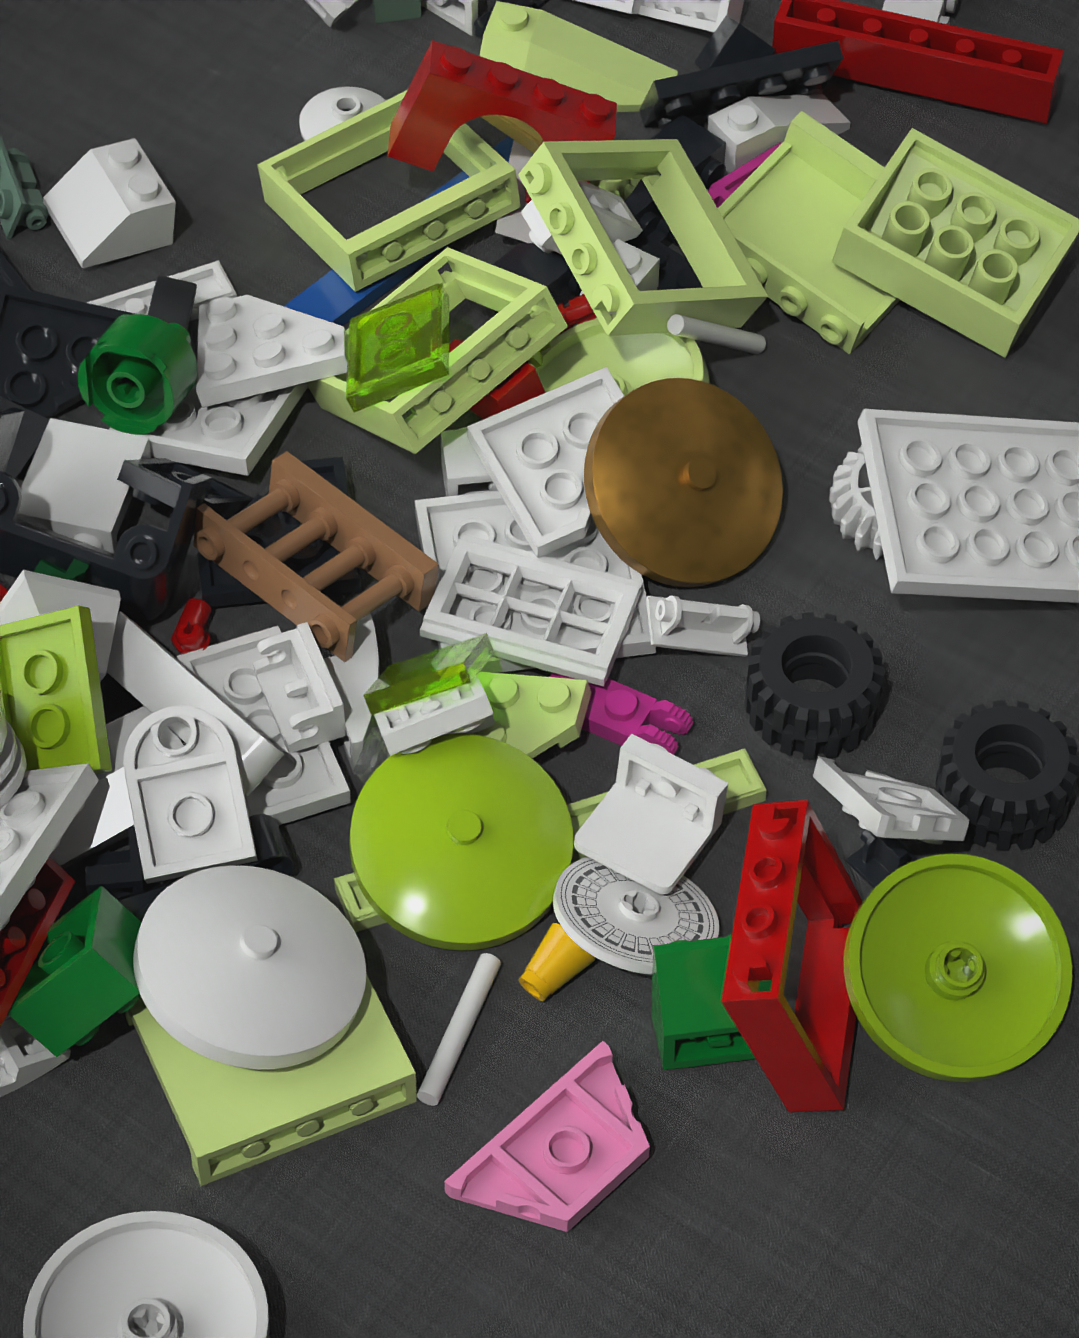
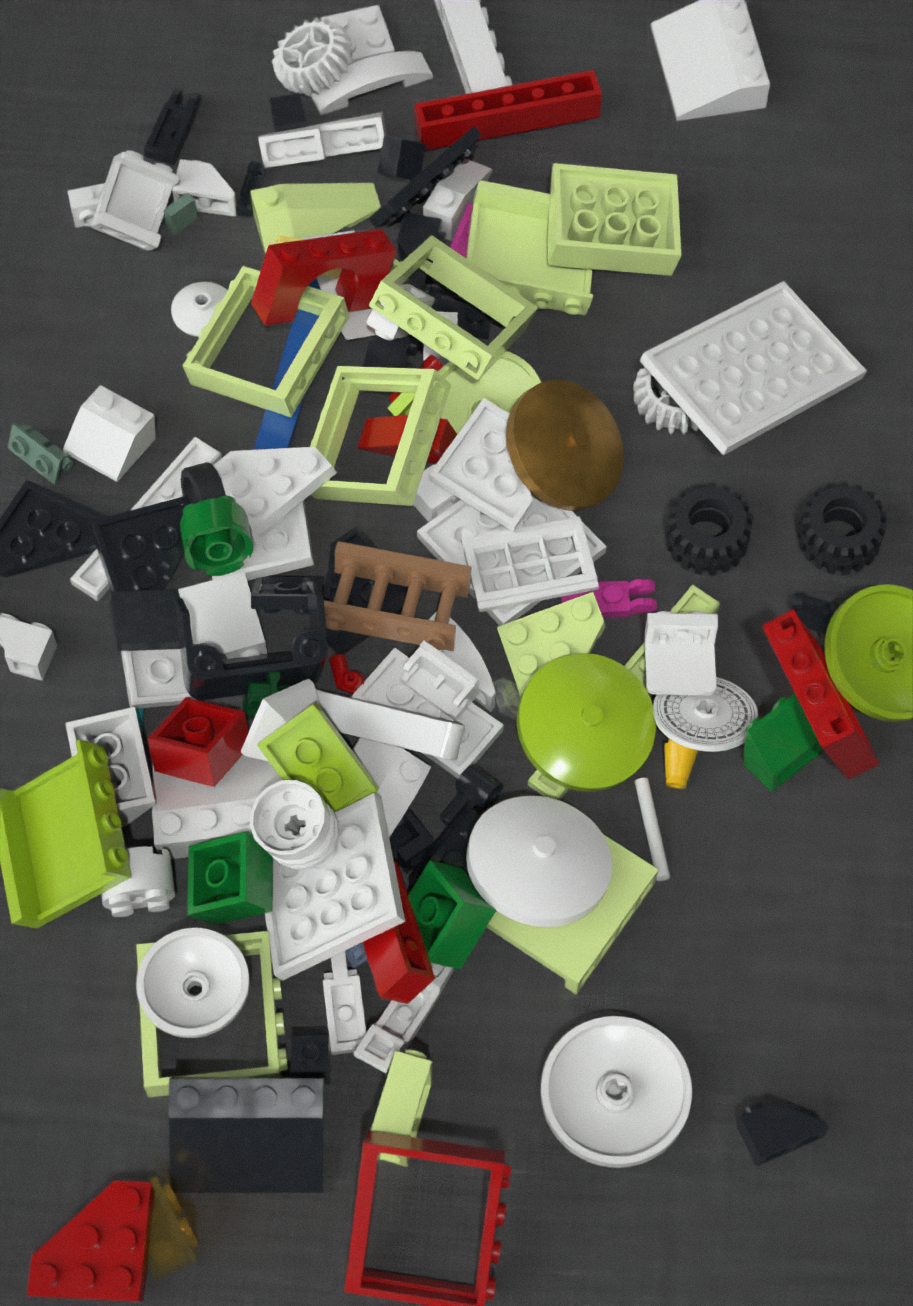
camera: 30 degrees left, 10 degrees up
(186, 799) = (433, 782): white tile -> none
(398, 347) = (363, 446): clear neon green tile -> none
(429, 674) = (509, 634): clear neon green tile -> none
(449, 712) = (533, 659): white bracket -> none
(560, 1150) = (754, 867): bright pink wing -> none
(700, 625) = (624, 524): white hinge -> none
(716, 334) = (520, 344): white bar -> none
(892, 806) = (800, 578): white wing -> none

